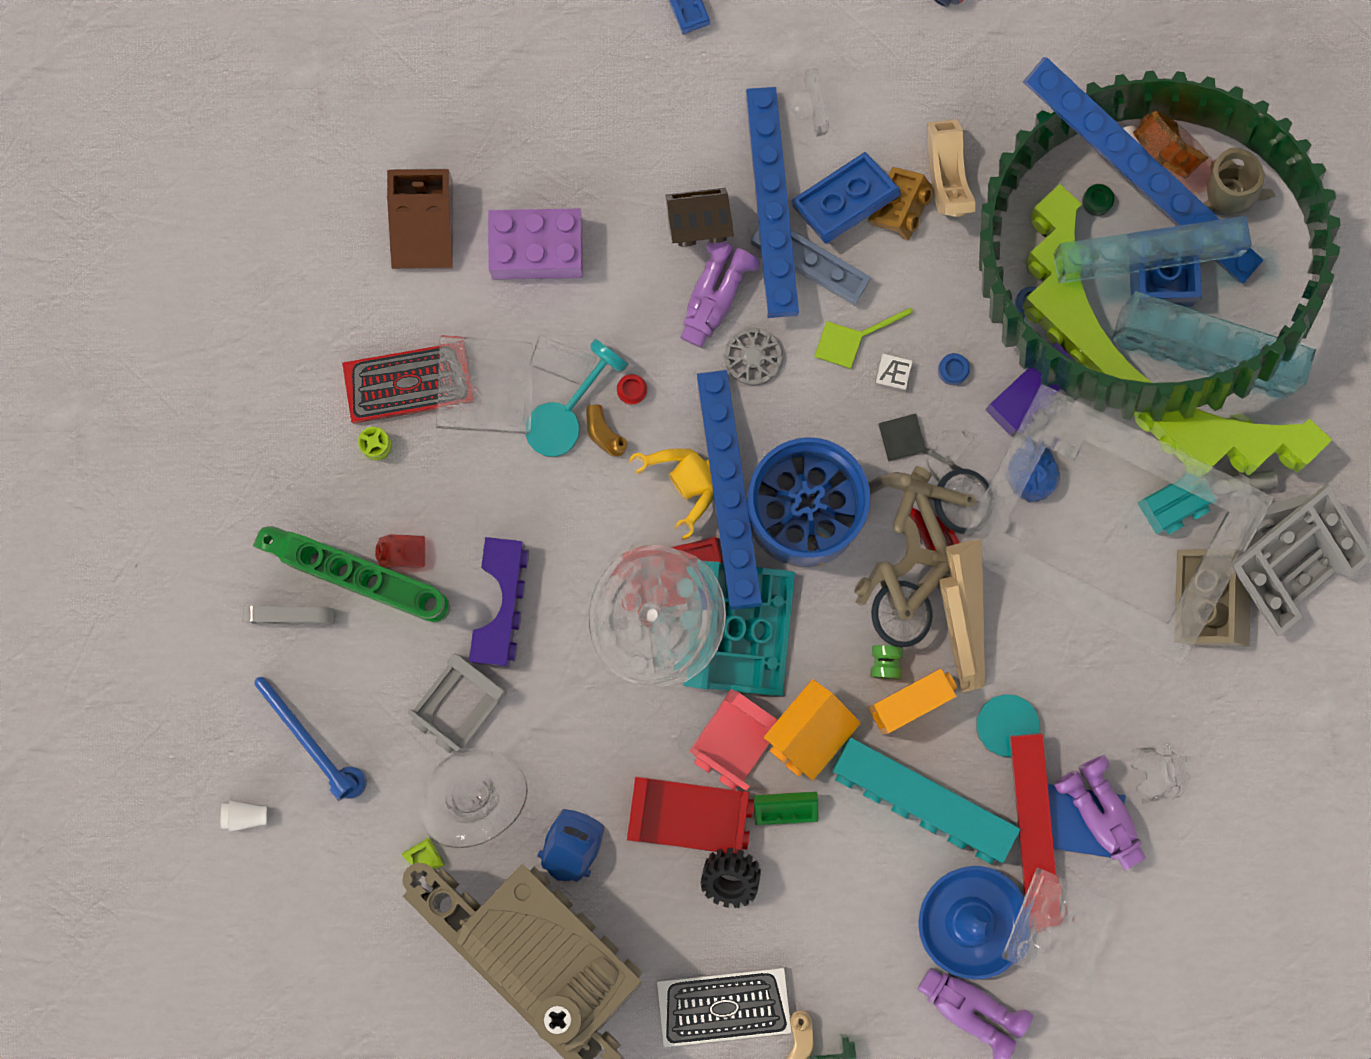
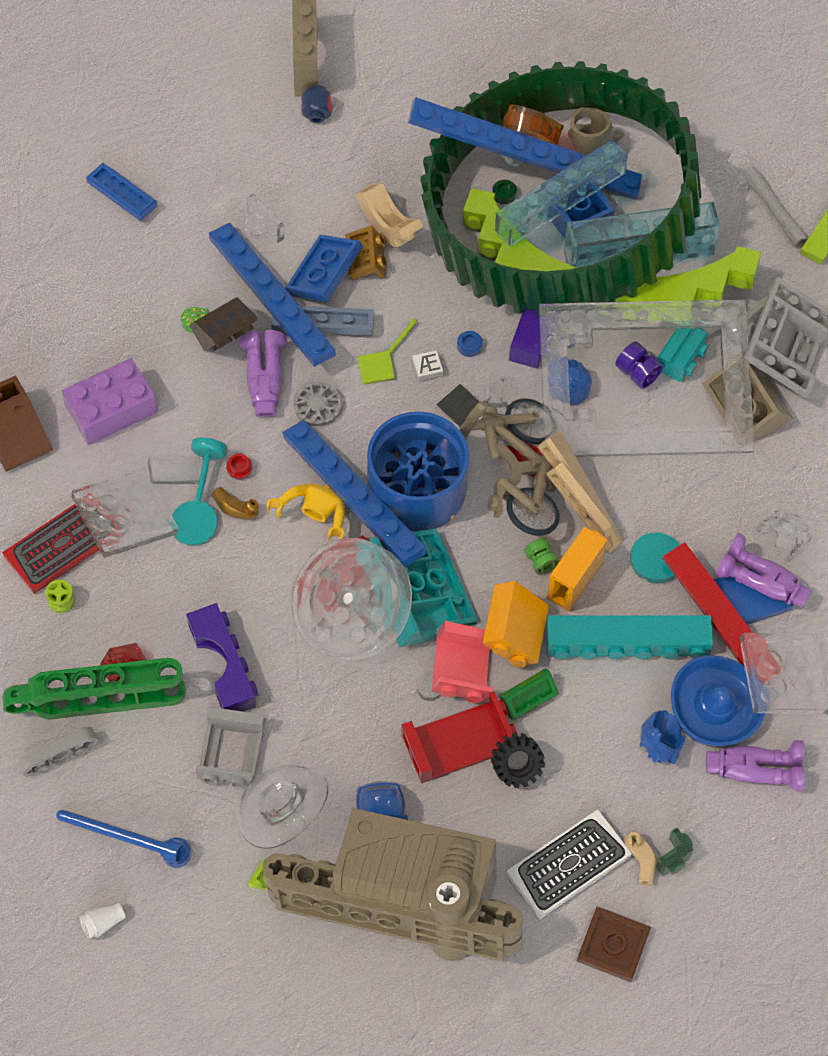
camera: 30 degrees left, 20 degrees down
(677, 183) = (190, 315): none -> bright green tile
(892, 932) = (662, 737): none -> blue hair
(1119, 484) = (637, 363): none -> dark purple wheel

